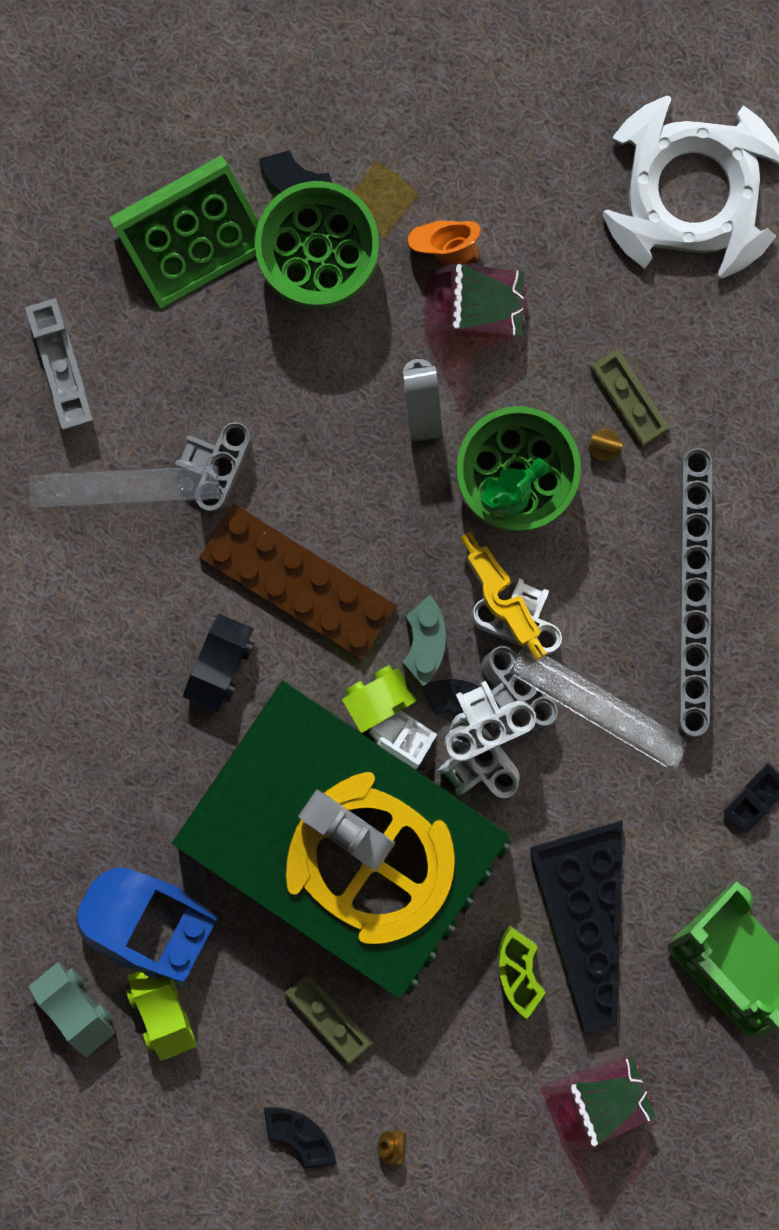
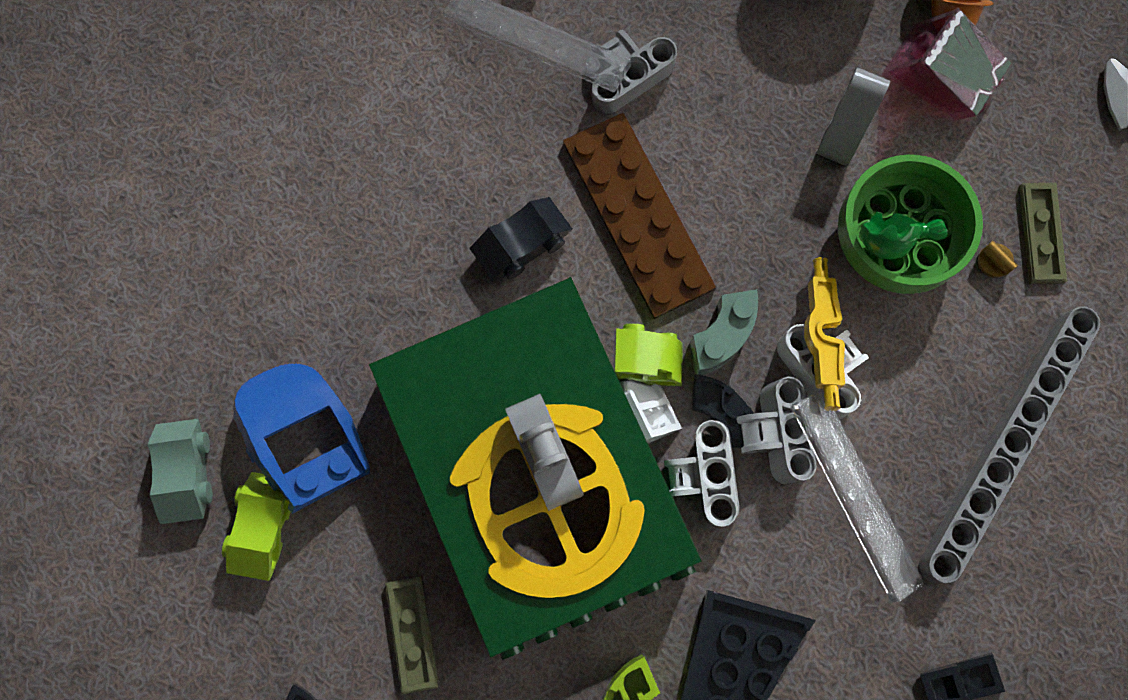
camera: 35 degrees right, 10 degrees down
(484, 712) = (749, 425): white piece -> none

